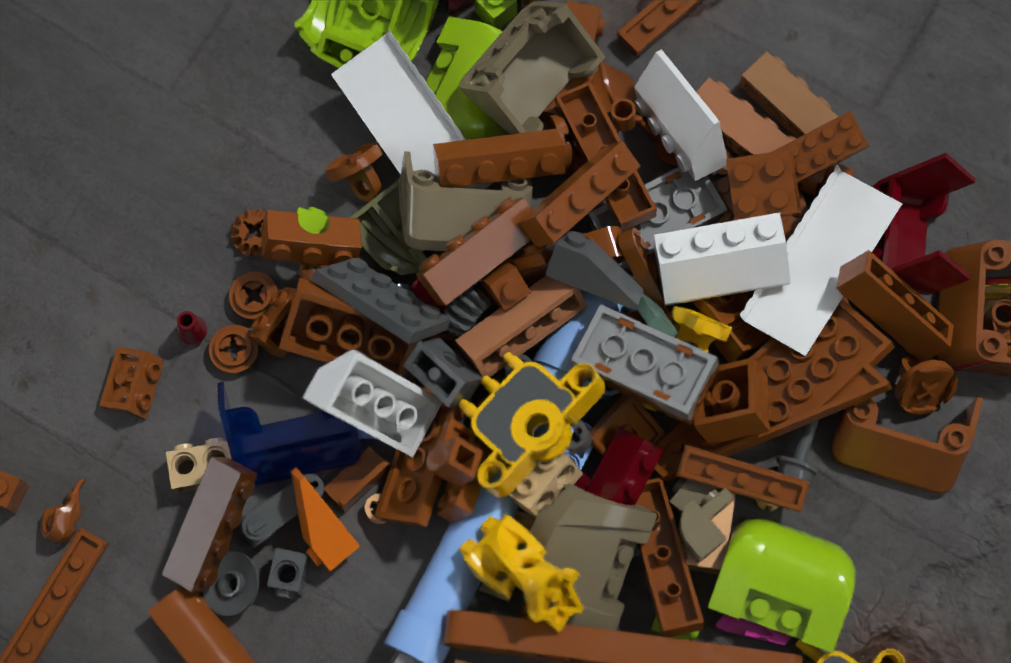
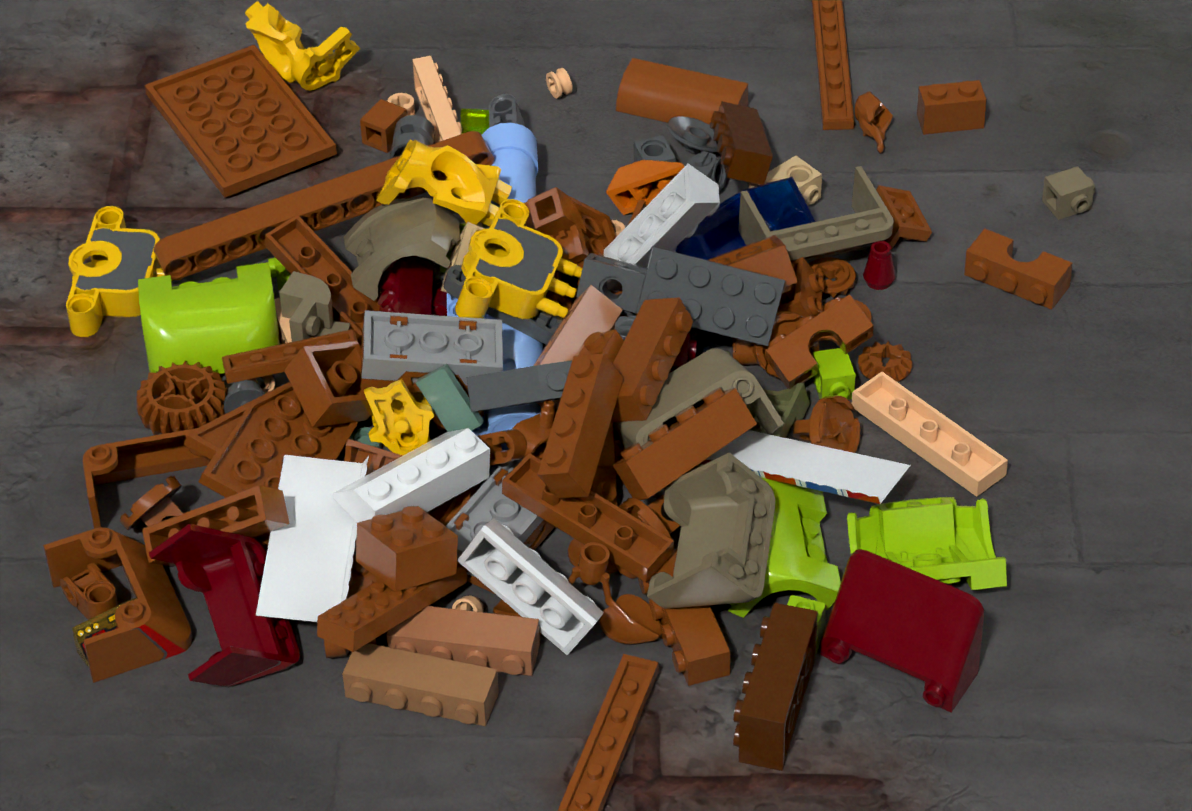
camera: 150 degrees right, 30 degrees down
(72, 238) = (1038, 281): none -> dark orange arch
(217, 356) = (830, 236): none -> dark tan windscreen
(277, 136) = (929, 433): none -> light nougat piece
(858, 504) = (180, 398): none -> dark orange gear

